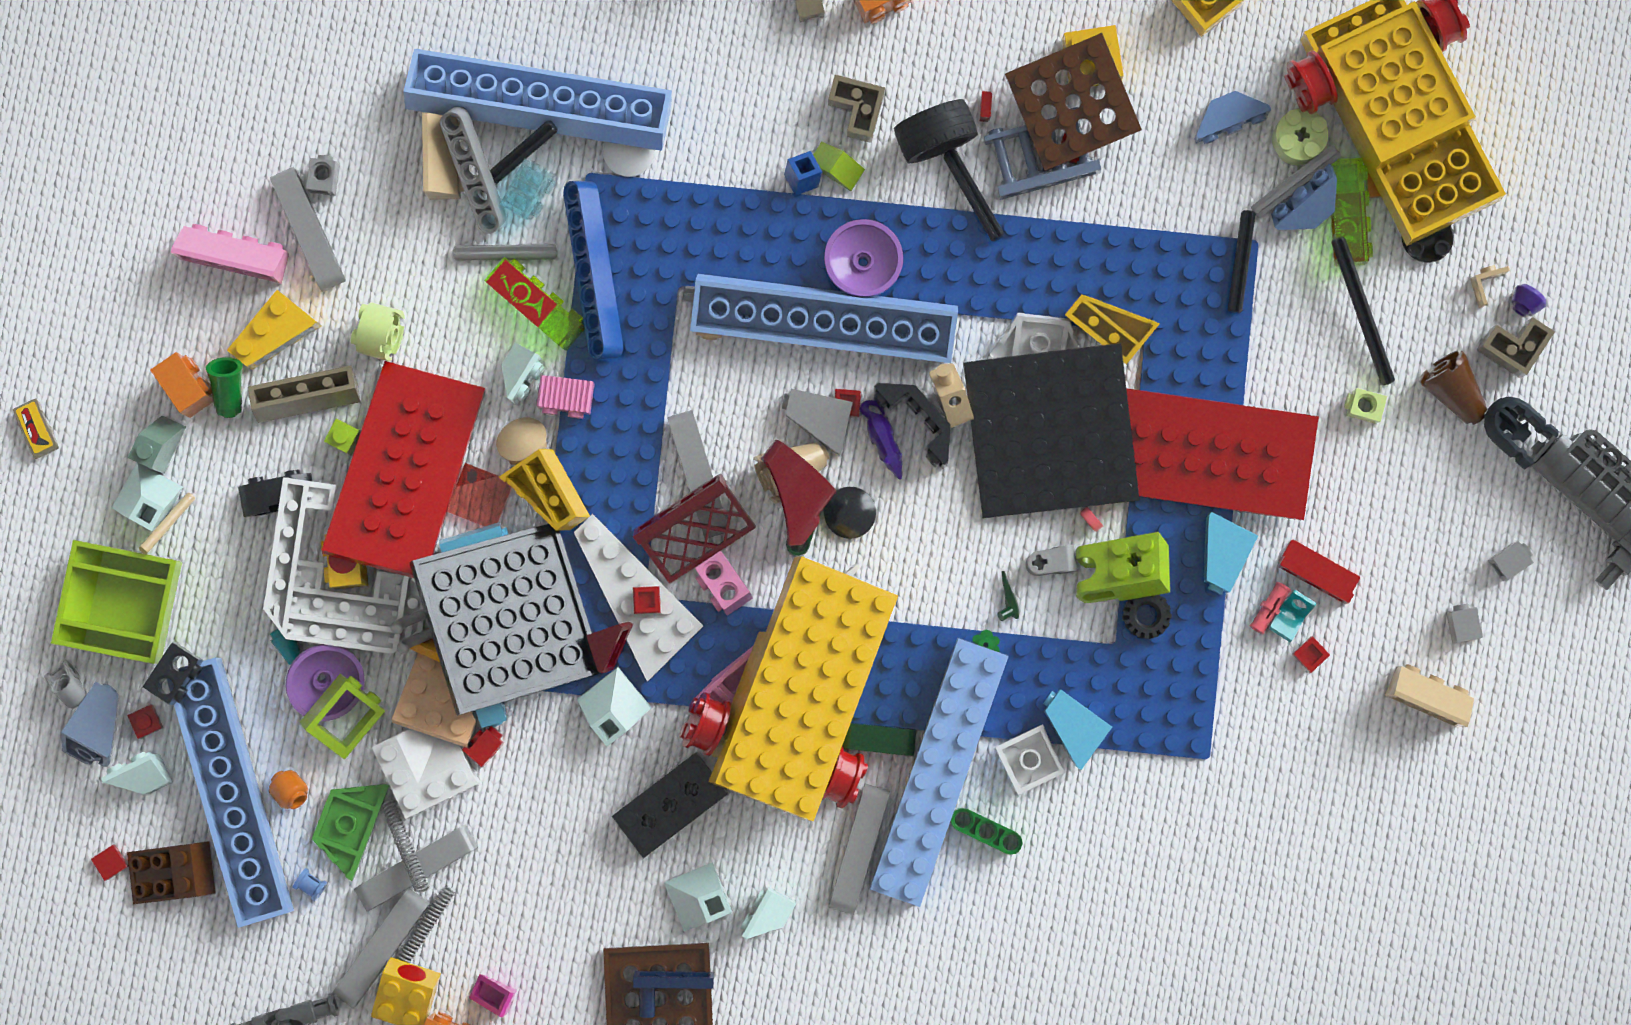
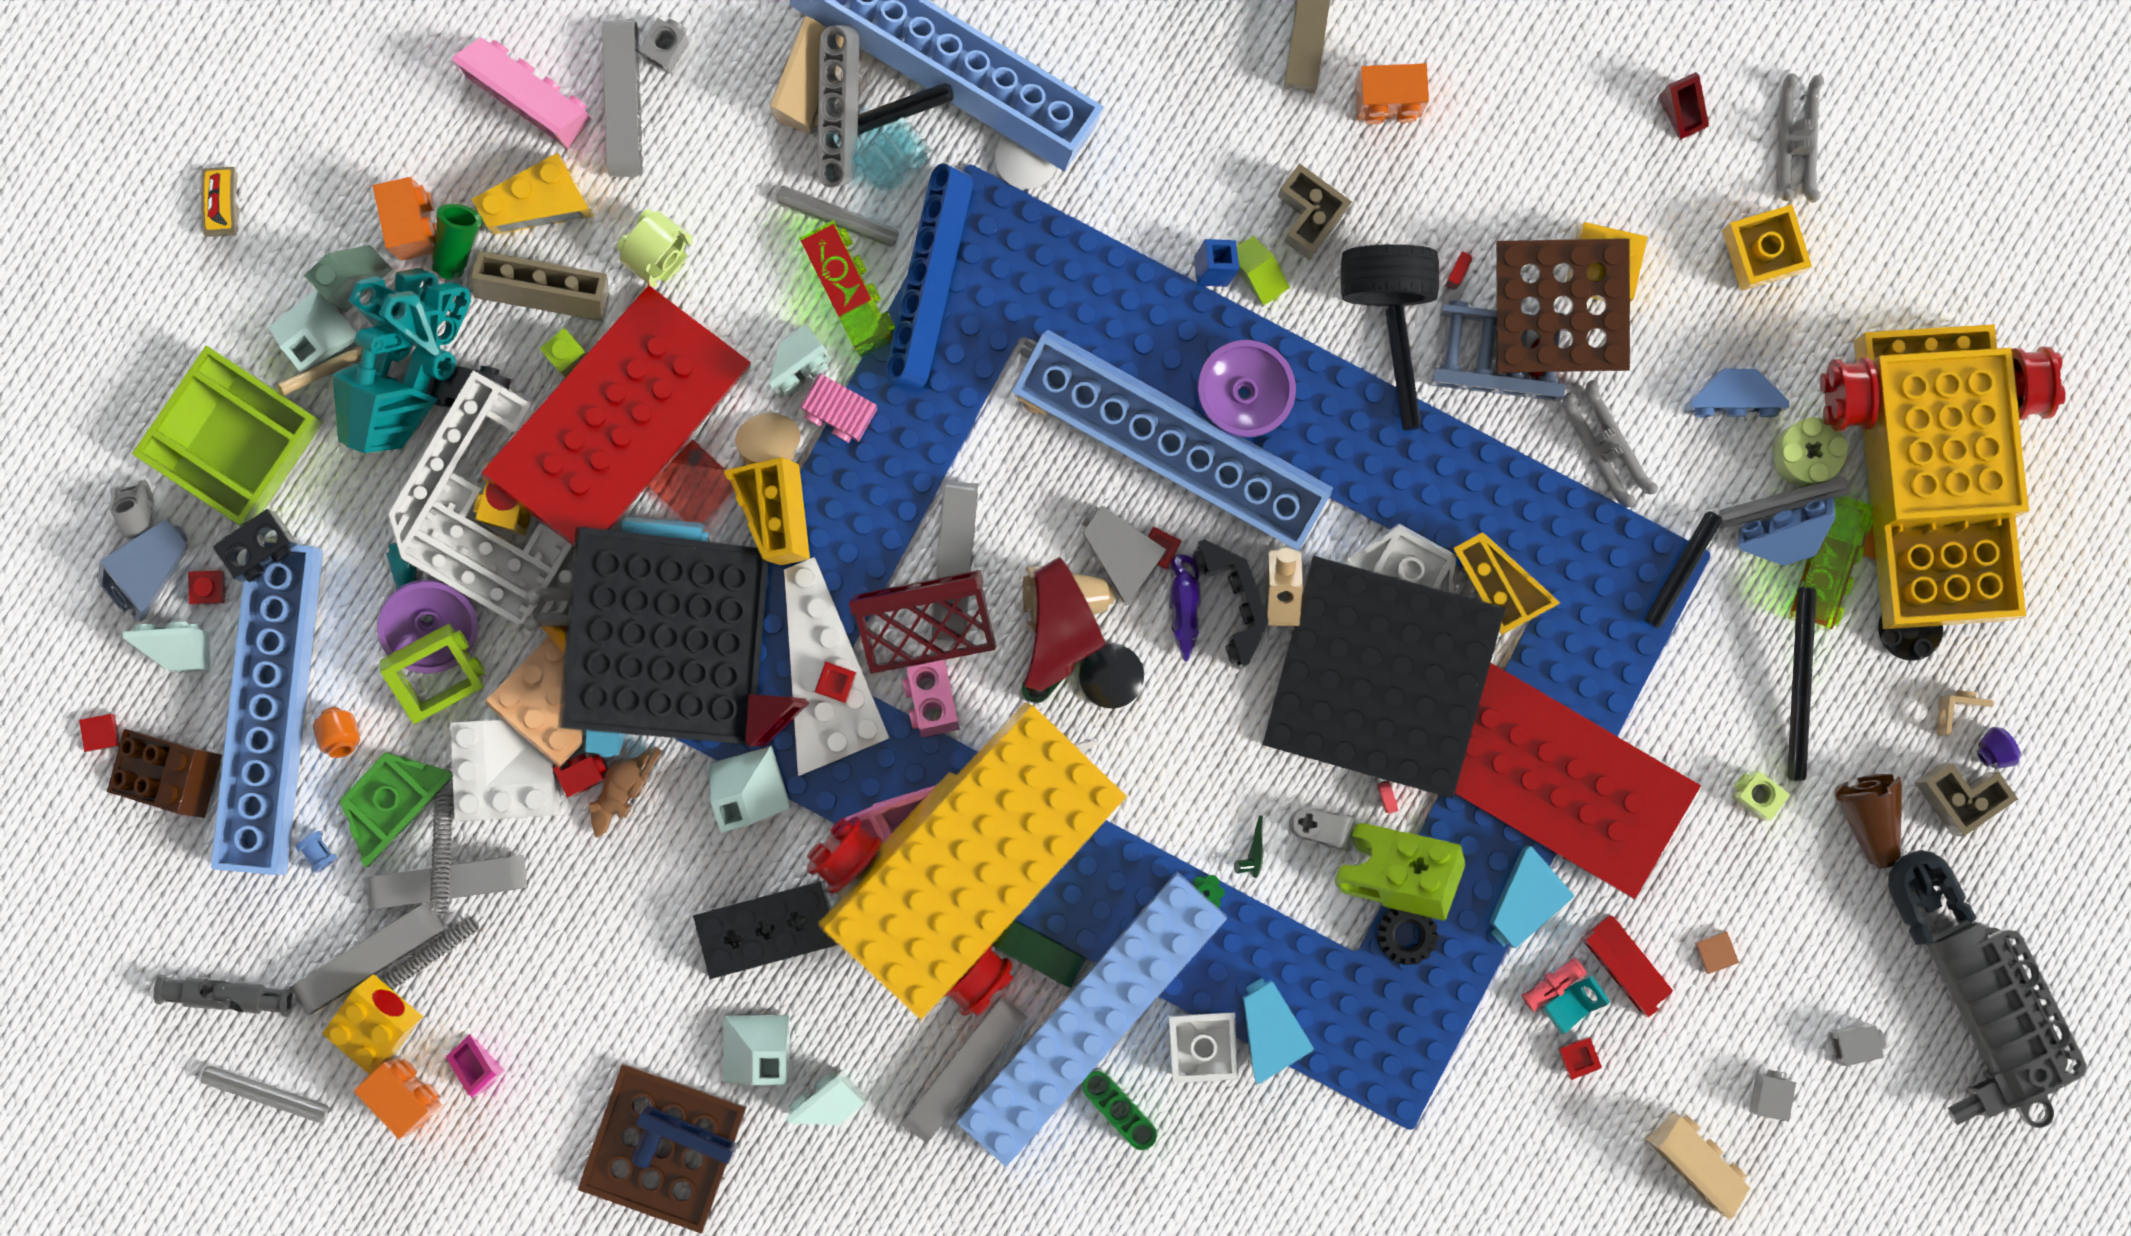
camera: 20 degrees right, 0 degrees up
(221, 535) = (372, 407): none -> teal piece
(517, 738) = (622, 781): none -> medium nougat animal
(1148, 191) = (1607, 445): none -> light grey piece
(1381, 535) = (1716, 952): none -> nougat tile

